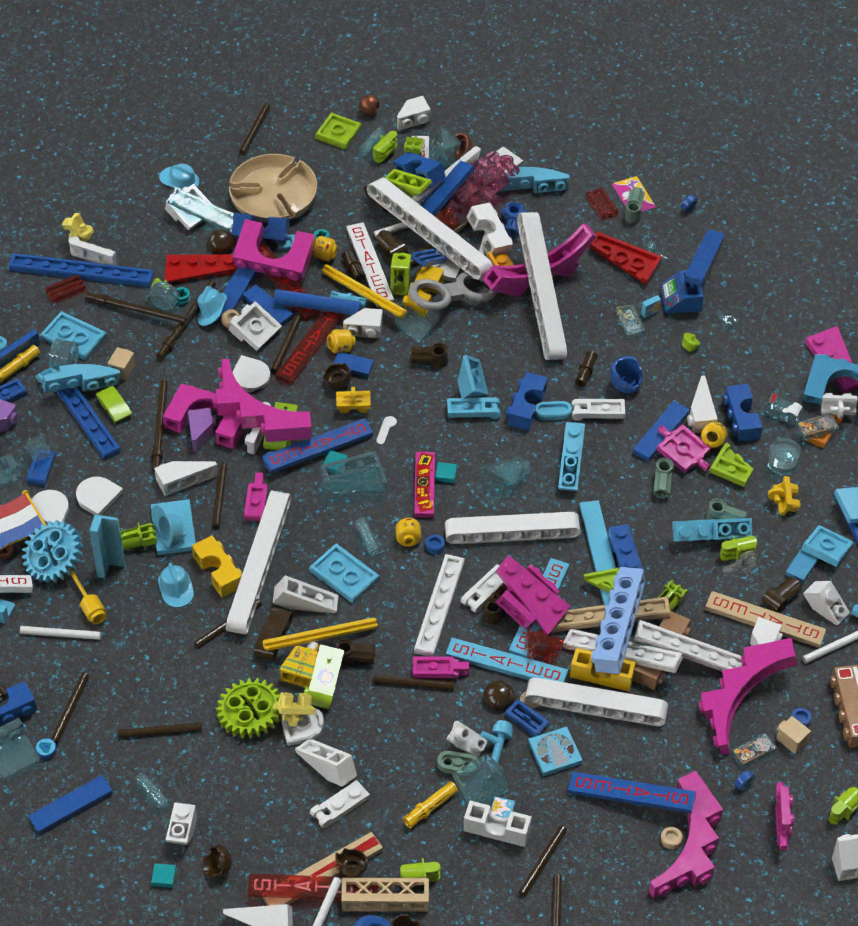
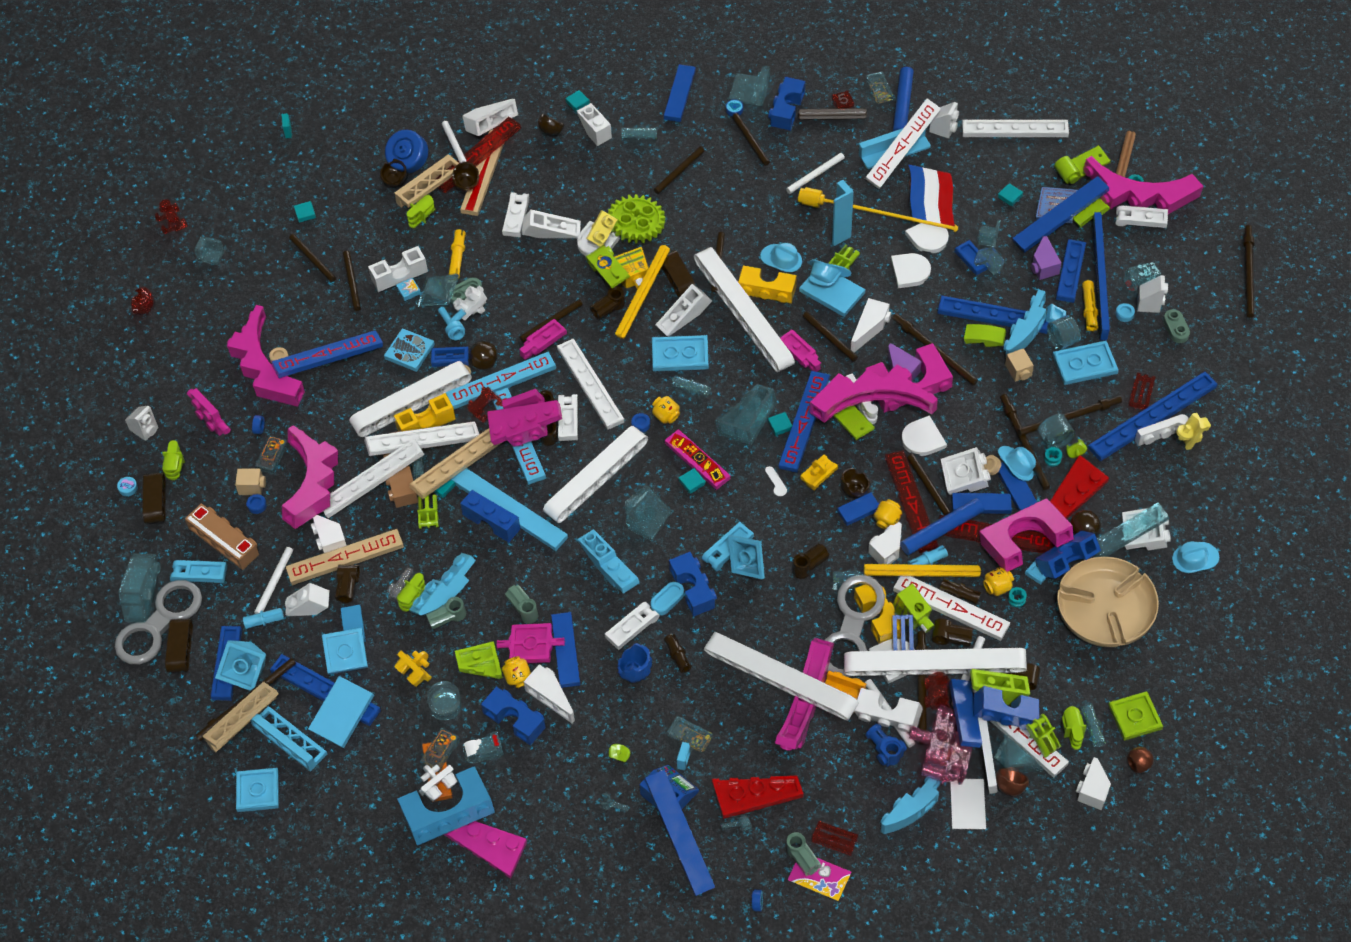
camera: 140 degrees right, 5 degrees up
(66, 545) = (881, 201): medium azure gear -> none
(254, 129) = (1202, 655): dark brown bar -> none
(602, 579) = (484, 486): lime tile -> none
(619, 620) = (431, 432): light blue brick -> none

